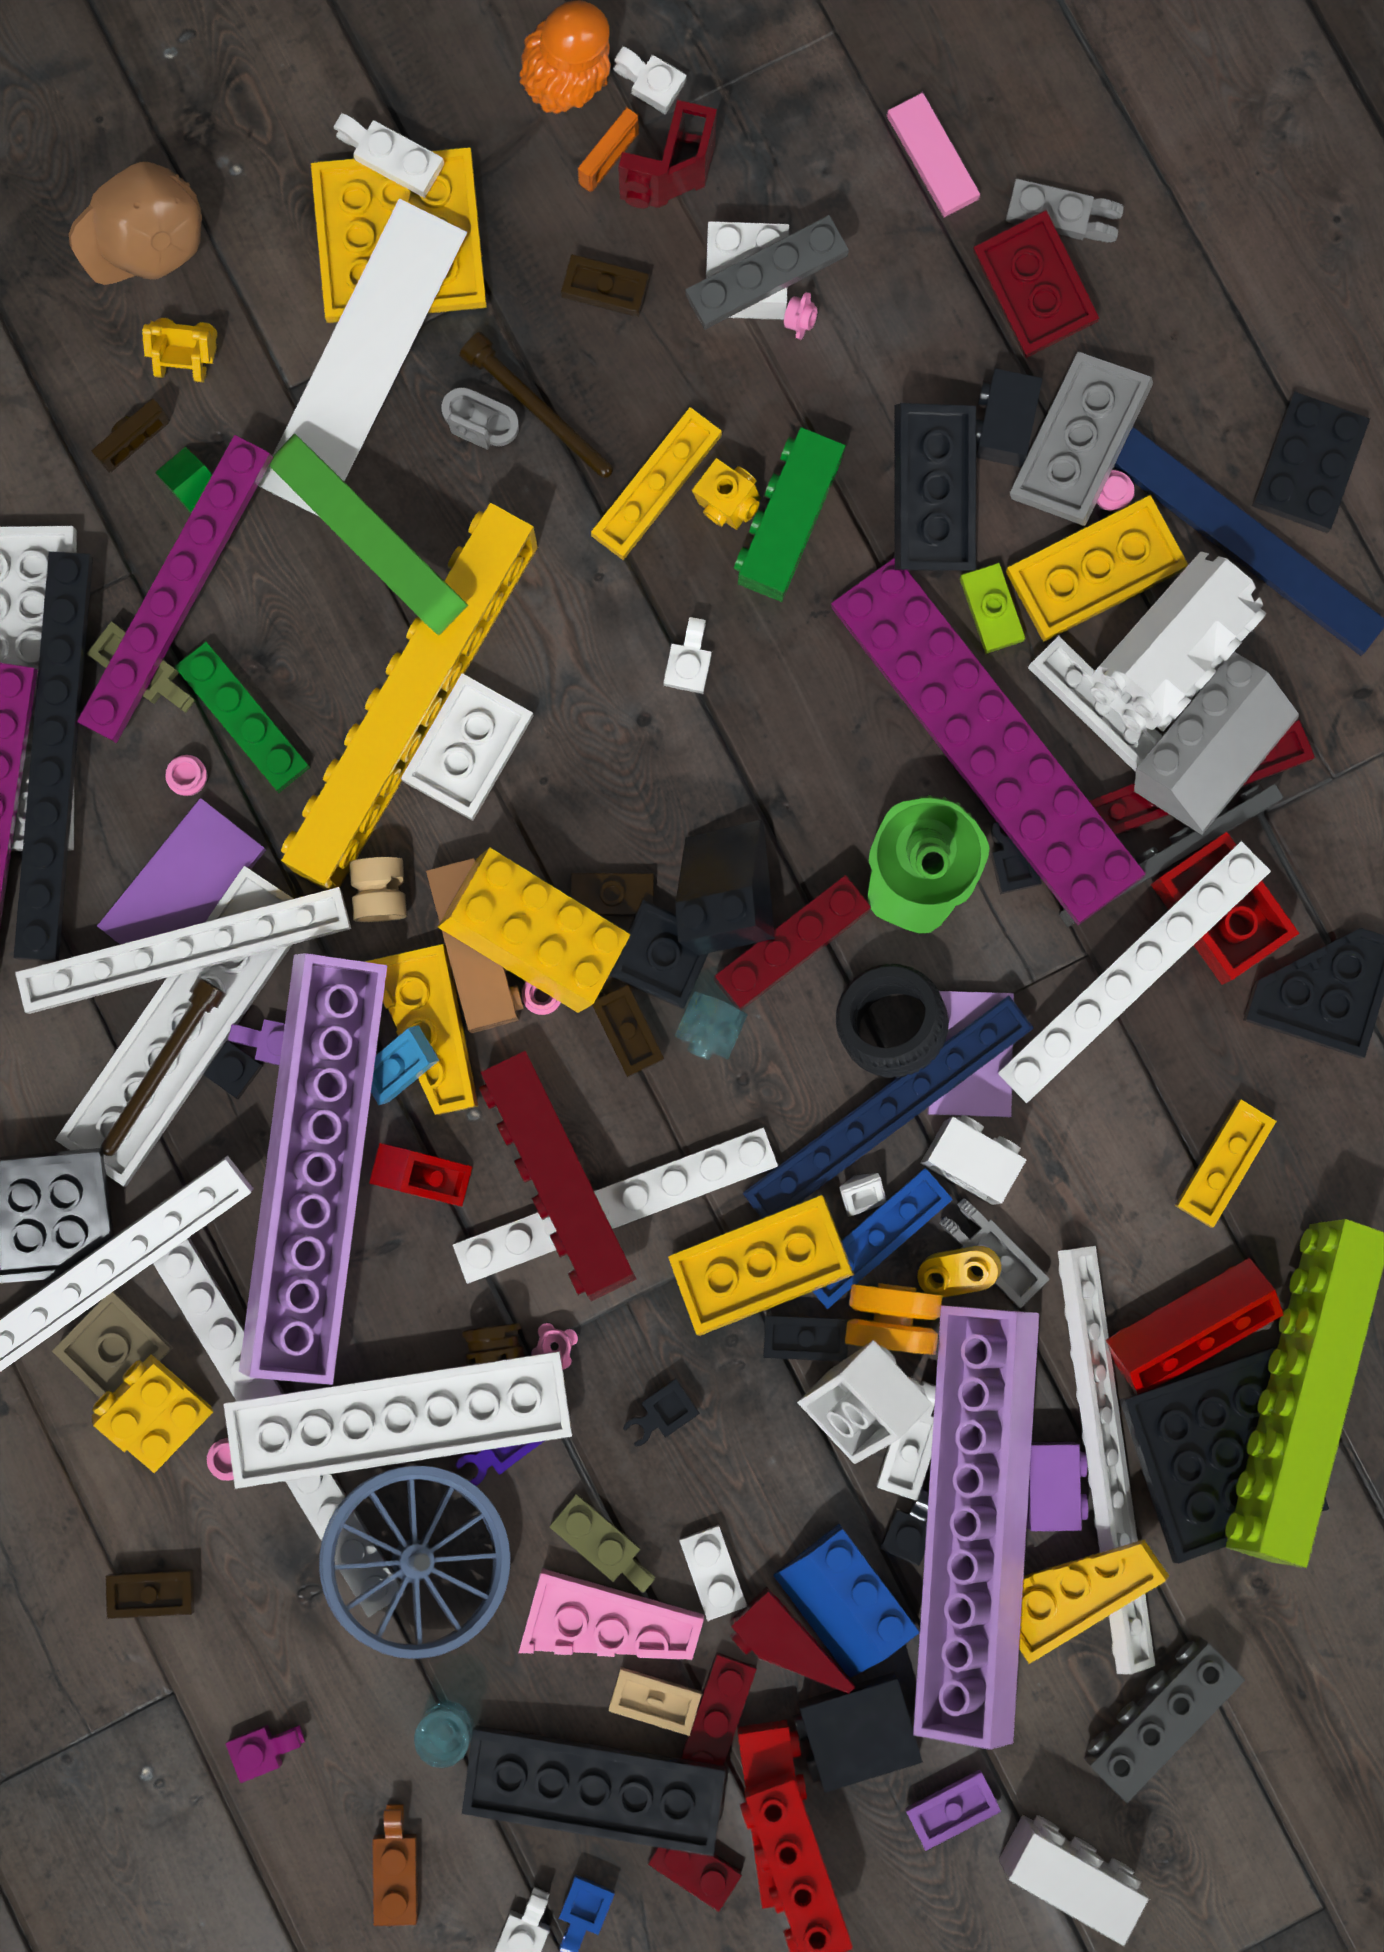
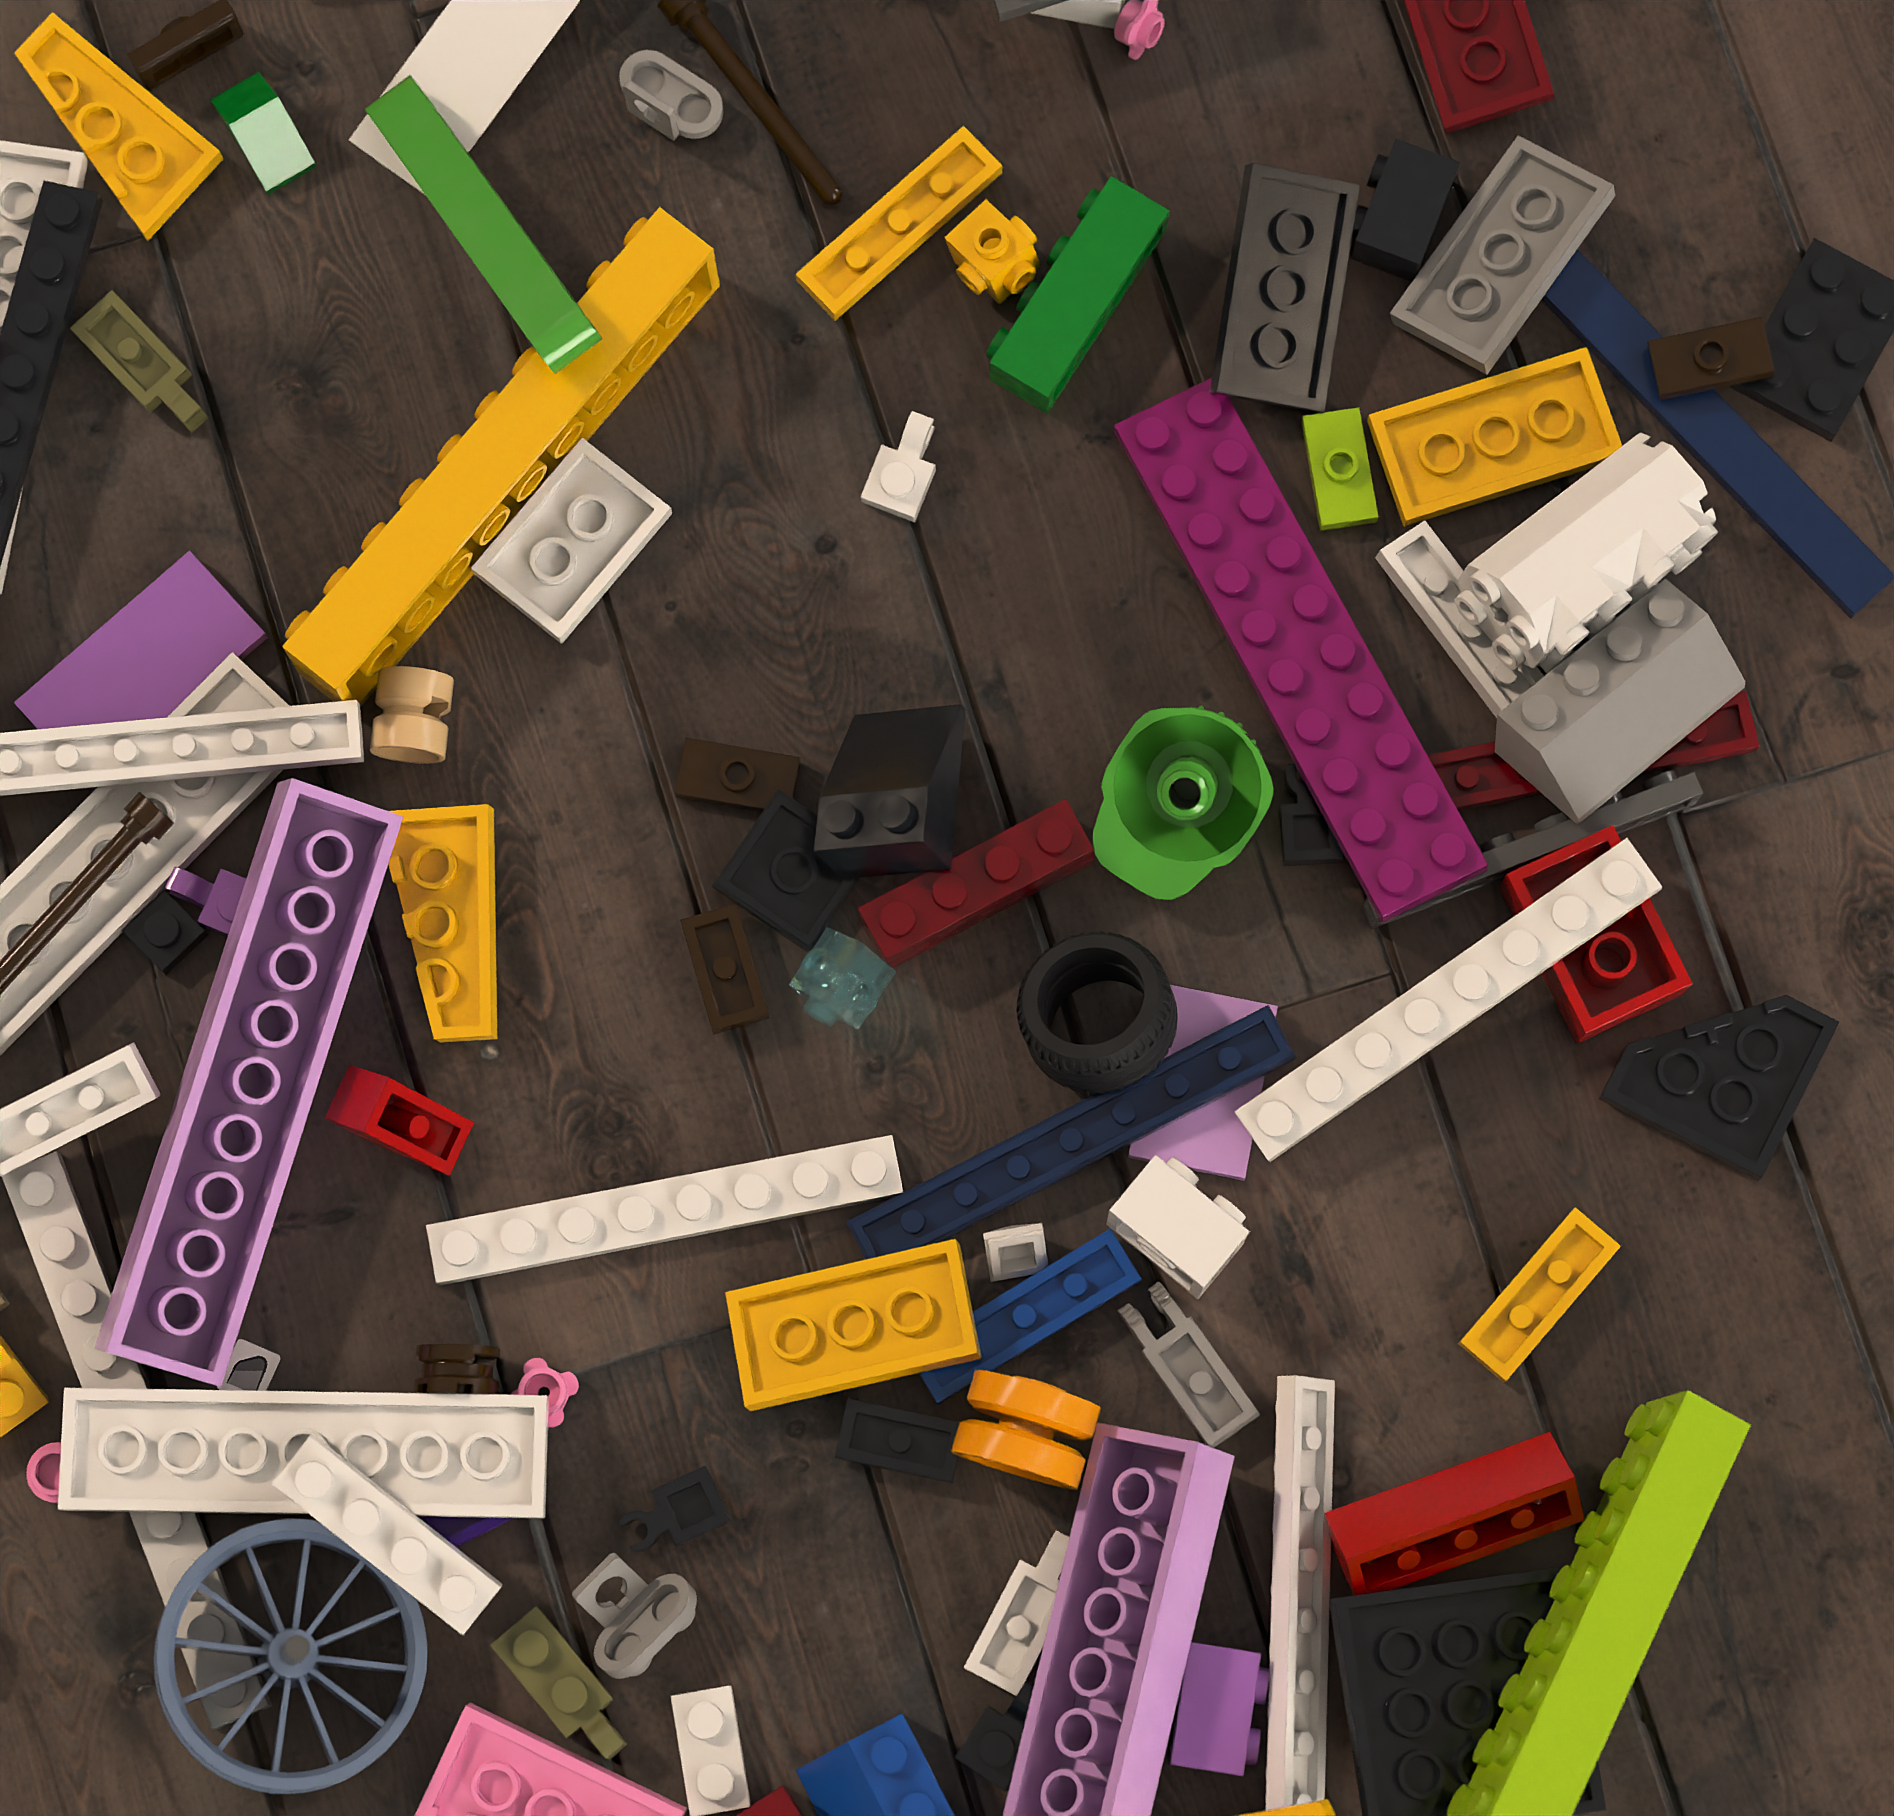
camera: 15 degrees right, 5 degrees down
(100, 506) = (126, 132): none -> yellow wing
(175, 589) = (207, 259): magenta plate -> none
(186, 775) = (176, 517): bright pink plate -> none
(242, 717) = (268, 450): green plate -> none
(349, 1364) = (249, 1368): none -> sticker
(401, 1064) = (398, 960): dark azure plate -> none
(466, 1467) = (387, 1534): none -> white plate
(480, 982) = (530, 814): medium nougat brick -> none
(534, 930) = (617, 804): yellow brick -> none
(535, 1006) = (611, 881): bright pink plate -> none
(557, 1176) = (588, 1151): dark red brick -> none
(649, 1493) = (640, 1621): none -> light grey bracket
(865, 1402) = (963, 1535): white brick -> none
(957, 1273) = (1129, 1381): yellow plate -> none
(1116, 492) = (1540, 336): bright pink plate -> none
(1238, 489) = (1710, 358): none -> dark brown plate

